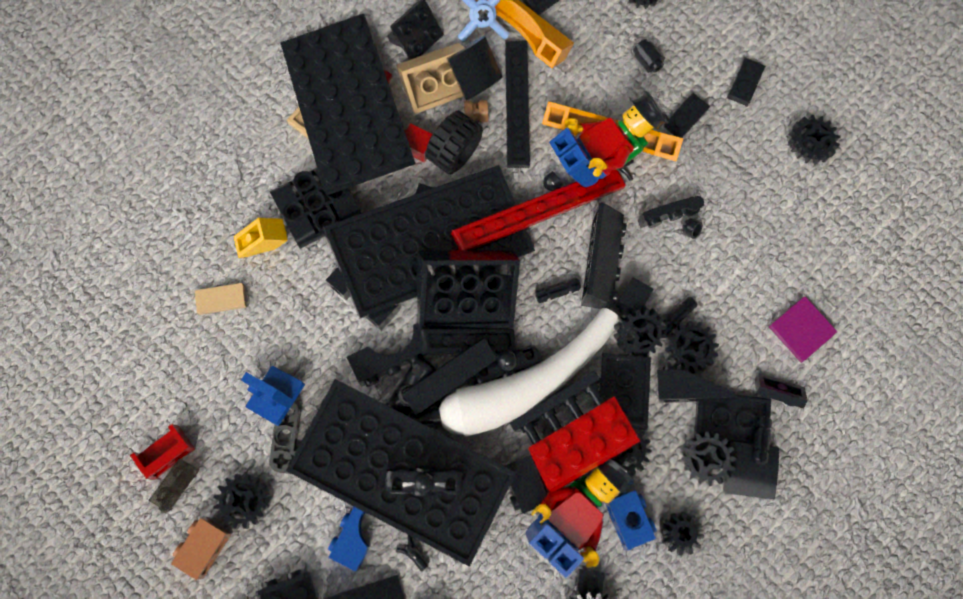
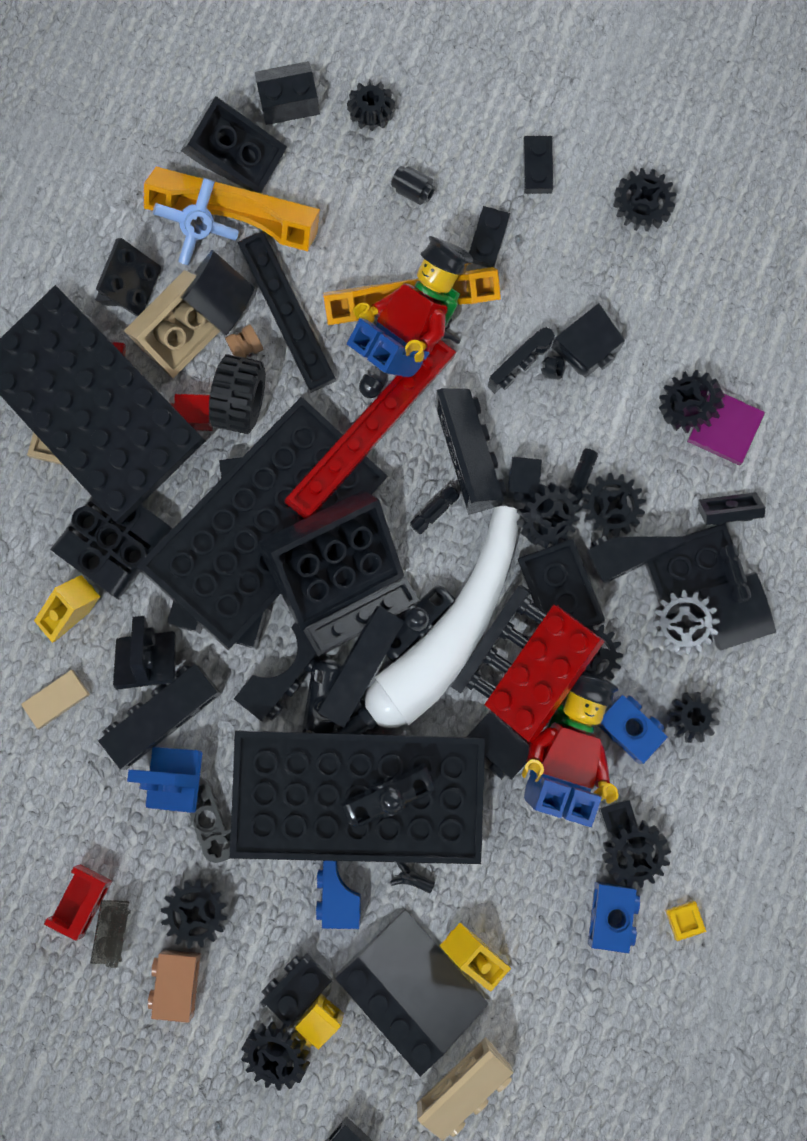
camera: 20 degrees left, 5 degrees up
(287, 345) = (158, 717): none -> black brick
(297, 297) = (144, 657): none -> black bracket
(727, 221) = (589, 342): none -> black torso
(785, 298) = (691, 404): none -> black gear

